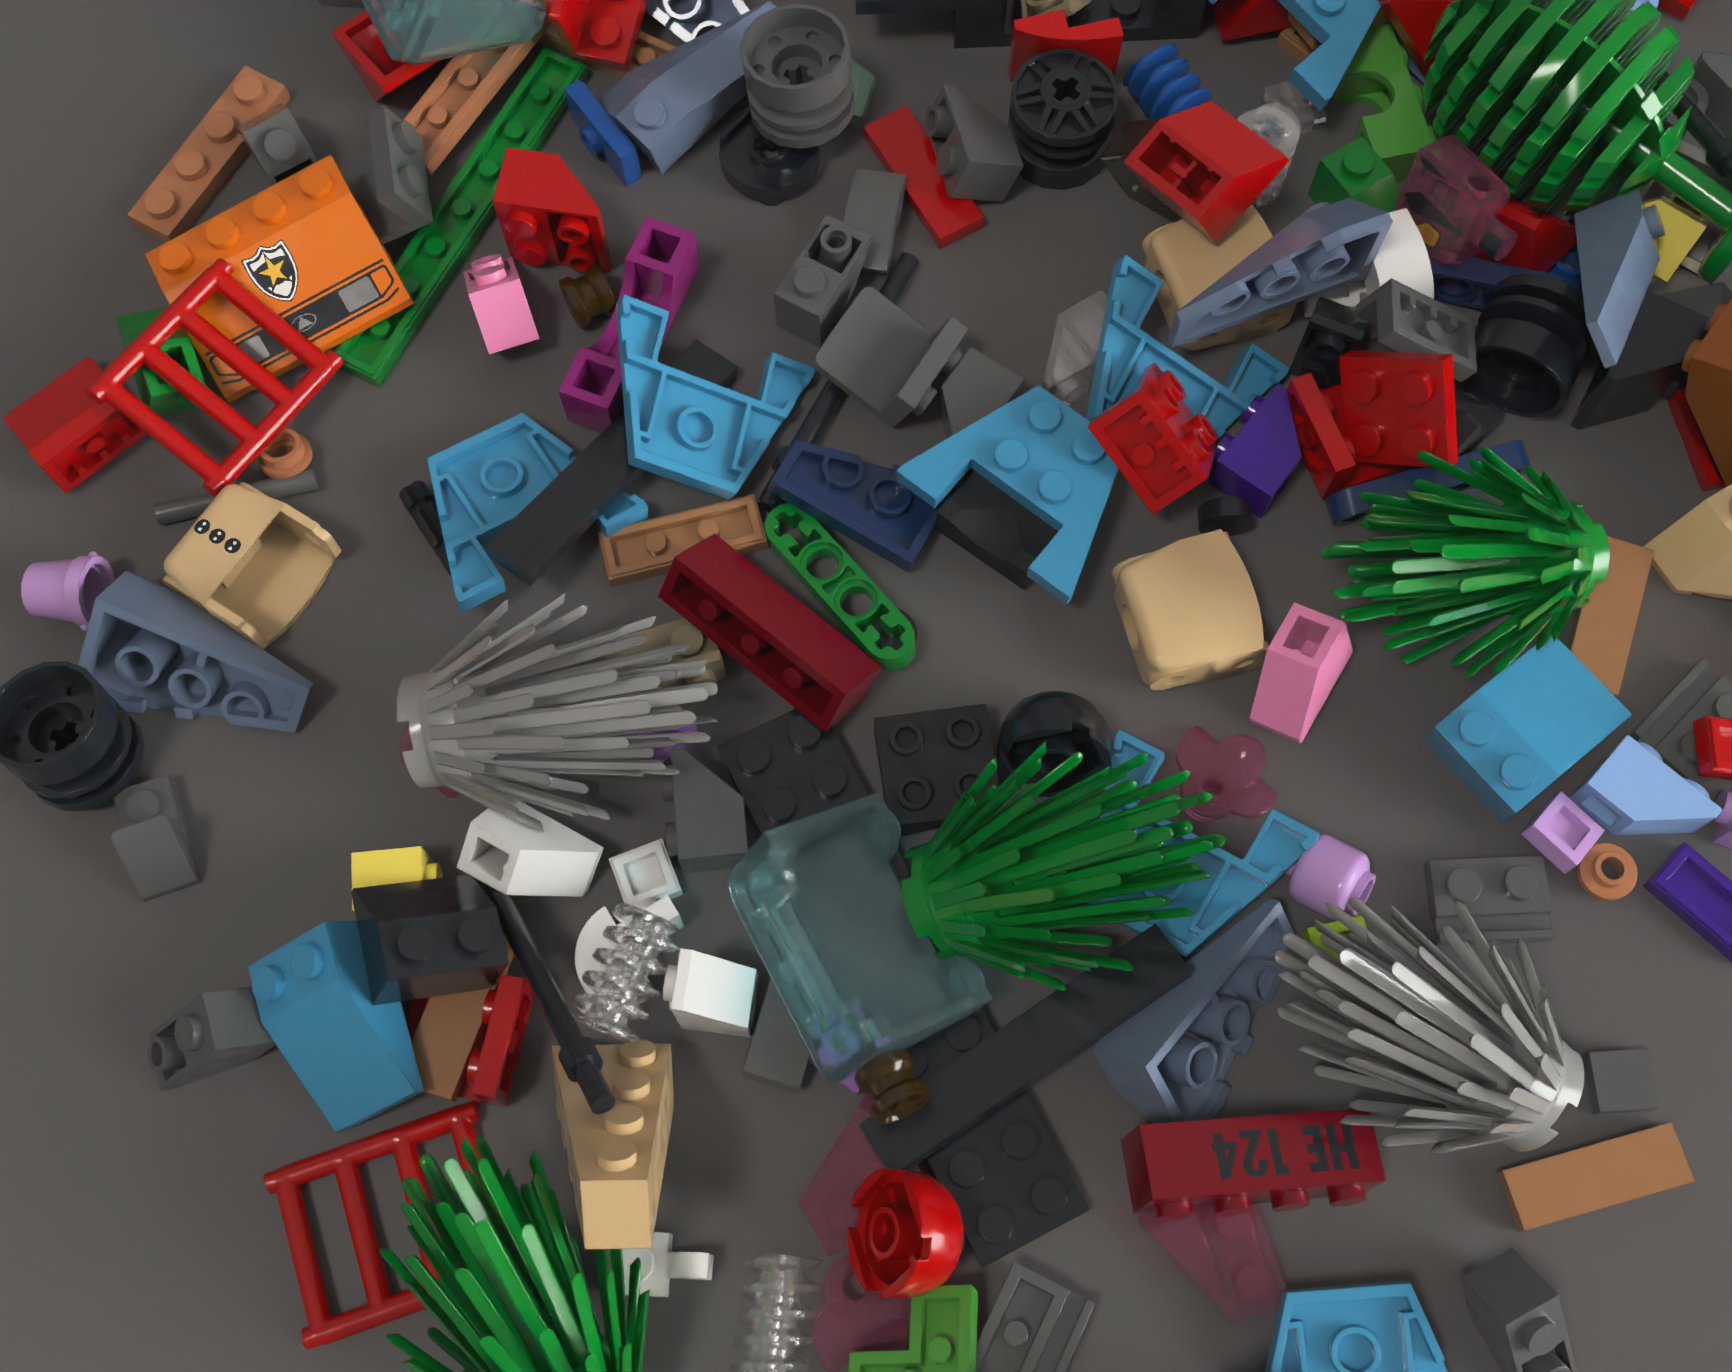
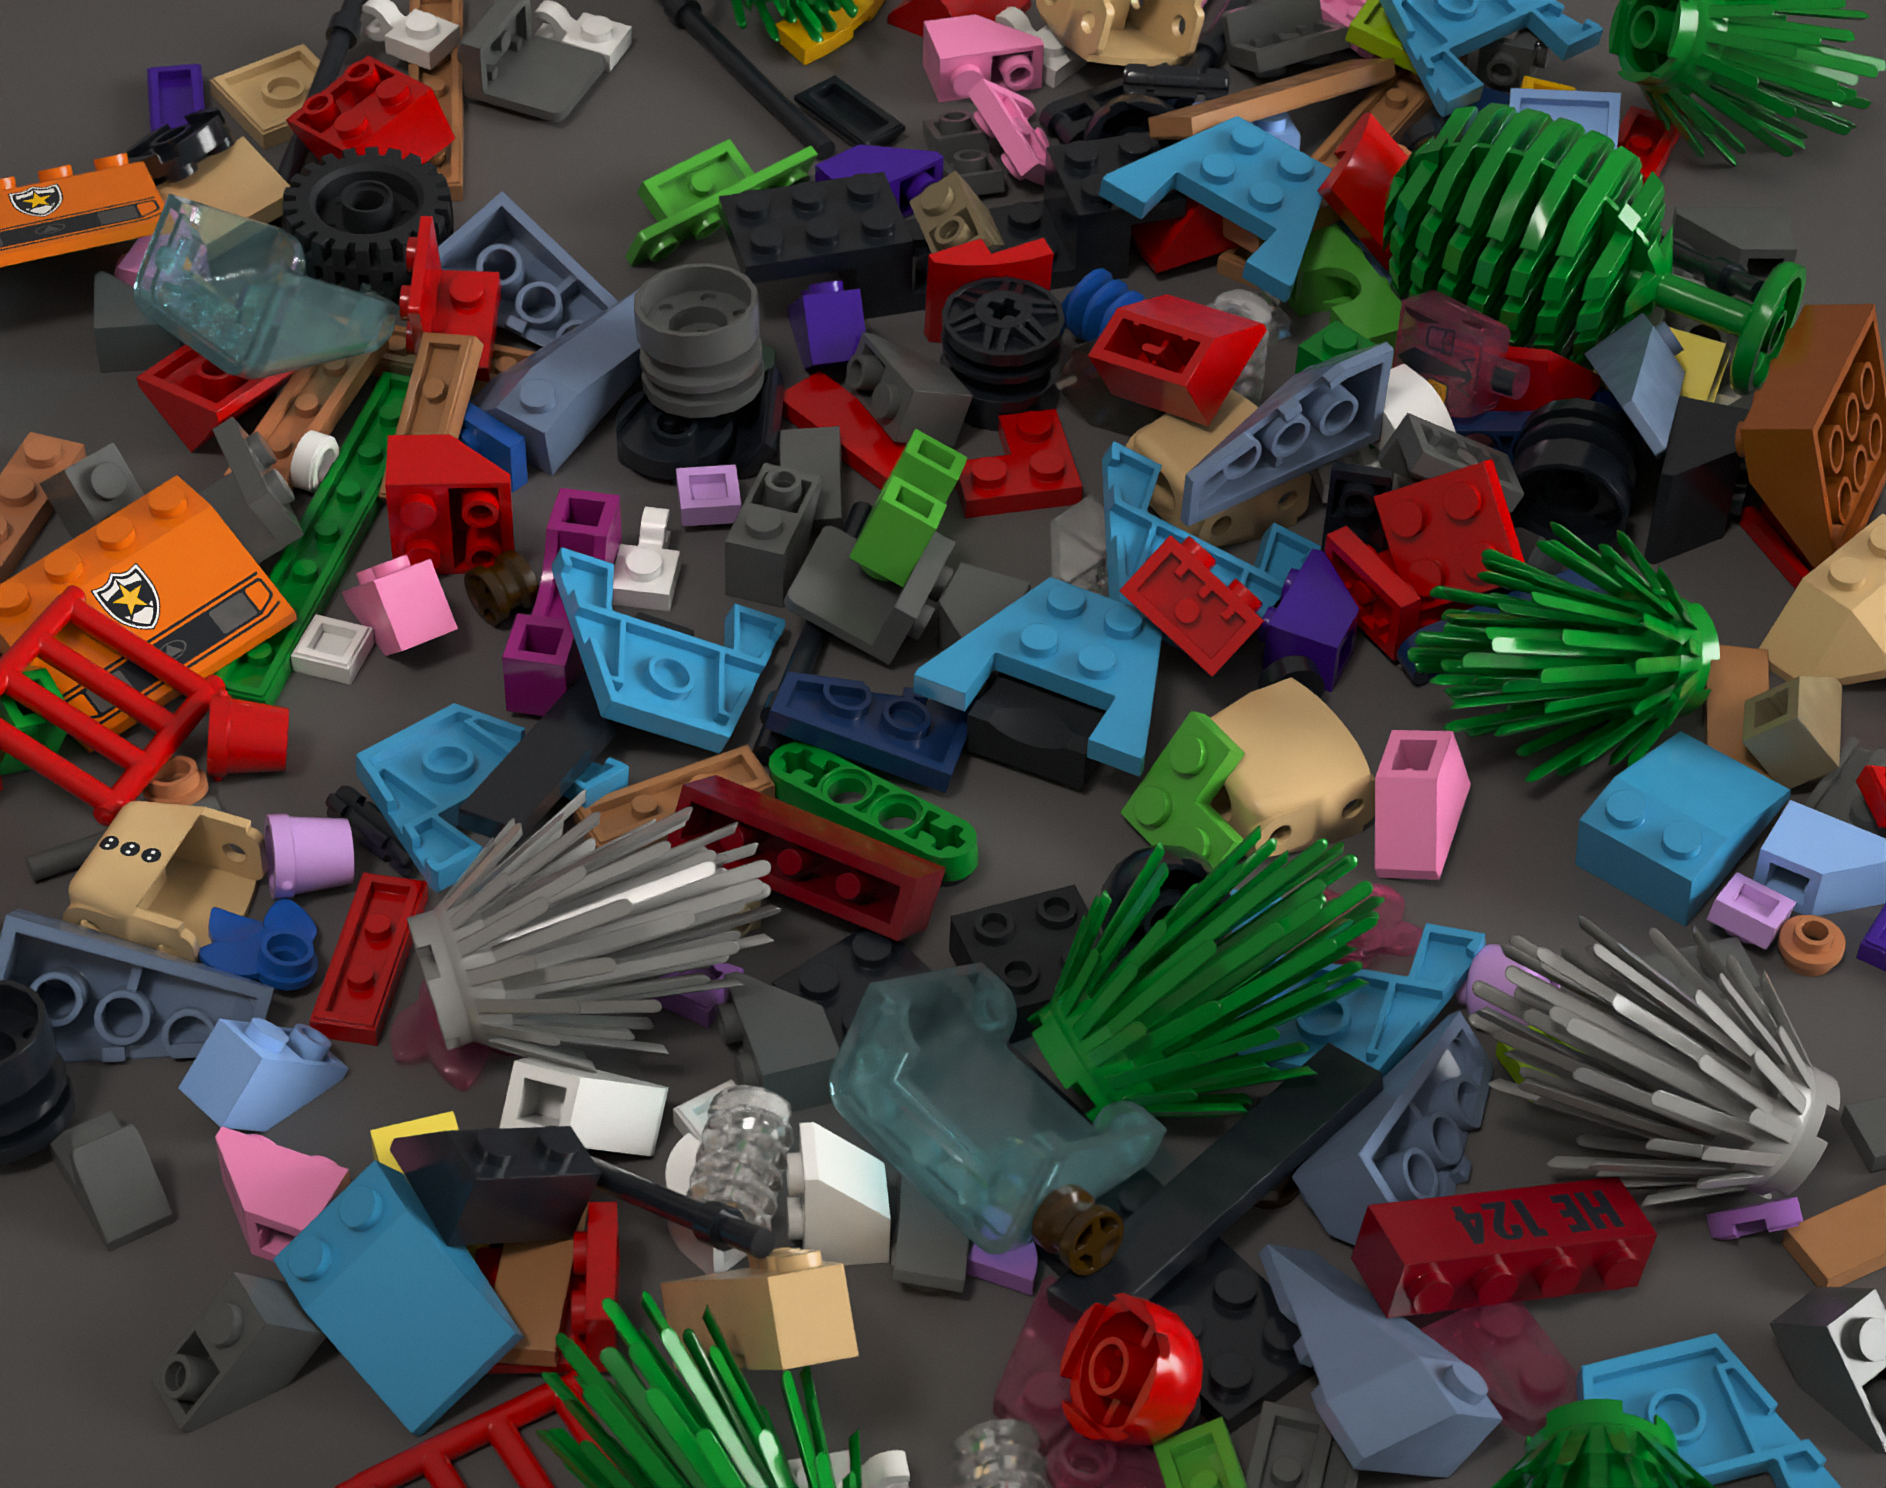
camera: 15 degrees left, 25 degrees down
(275, 893) = (275, 1188): none -> bright pink slope
(287, 764) = (260, 1073): none -> light blue slope
(314, 626) = (272, 951): none -> blue plate
(346, 418) = (245, 736): none -> red piece
(369, 549) = (307, 854): none -> lavender piece
(403, 649) = (368, 959): none -> red tile
(442, 331) = (332, 649): none -> white tile
(463, 135) = (312, 460): none -> white tile
(569, 99) = (439, 387): none -> medium nougat tile
(715, 294) = (648, 572): none -> white plate
(781, 224) = (708, 495): none -> lavender plate
(840, 159) = (758, 427): none -> black tile
(921, 61) = (827, 324): none -> dark purple slope
(936, 283) = (908, 509): none -> bright green arch
(1060, 247) = (1031, 474): none -> red plate
(1092, 635) = (1179, 787): none -> bright green plate
(1116, 1269) = (1384, 1384): none -> sand blue wedge
(1493, 1158) = (1754, 1218): none -> medium lavender tile
(1655, 650) = (1795, 729): none -> dark tan slope

